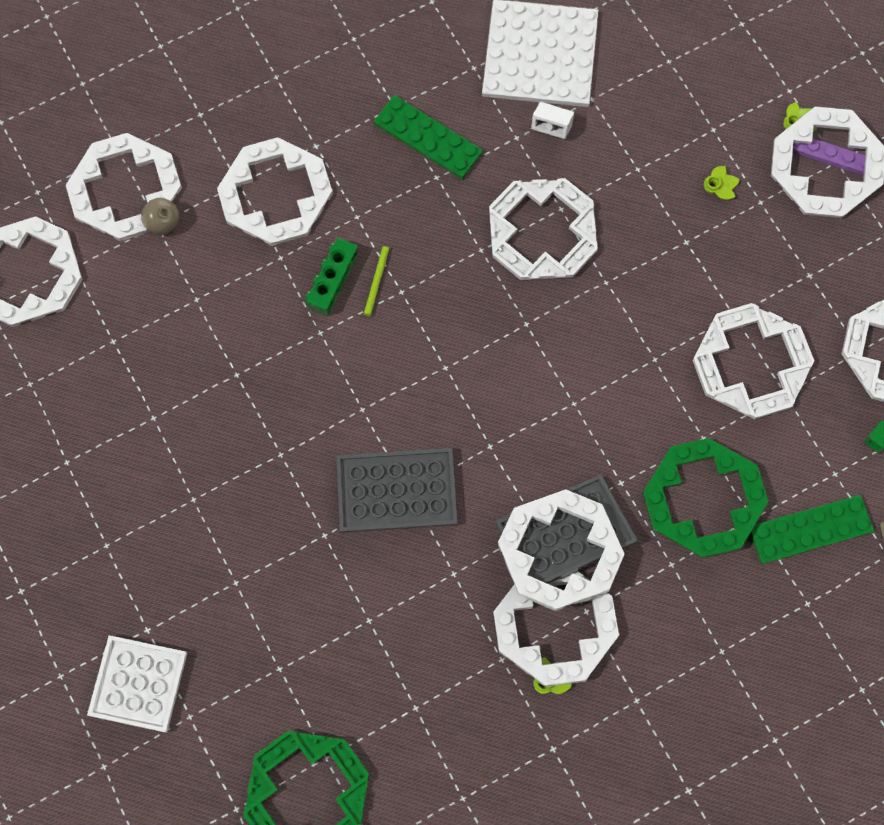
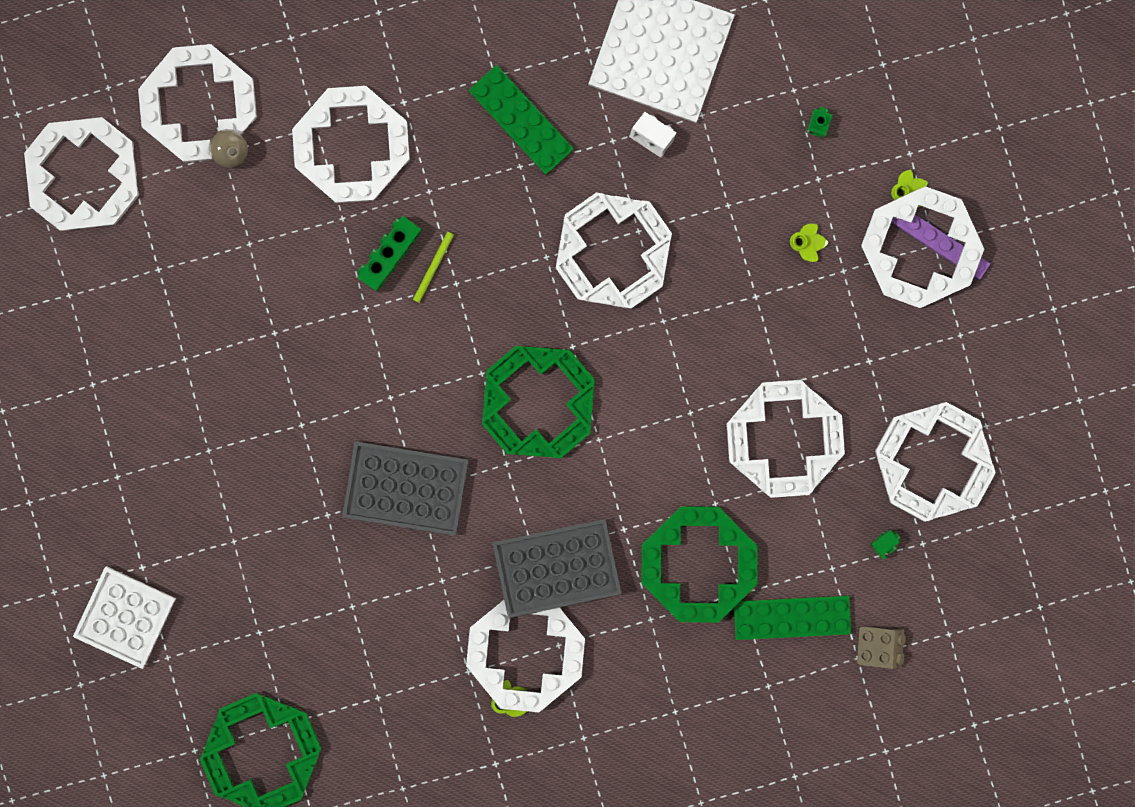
camera: 15 degrees right, 15 degrees up
(513, 419) = (541, 360): none -> green plate
(577, 588) = (504, 591): white plate -> none
(700, 80) = (814, 127): none -> green brick

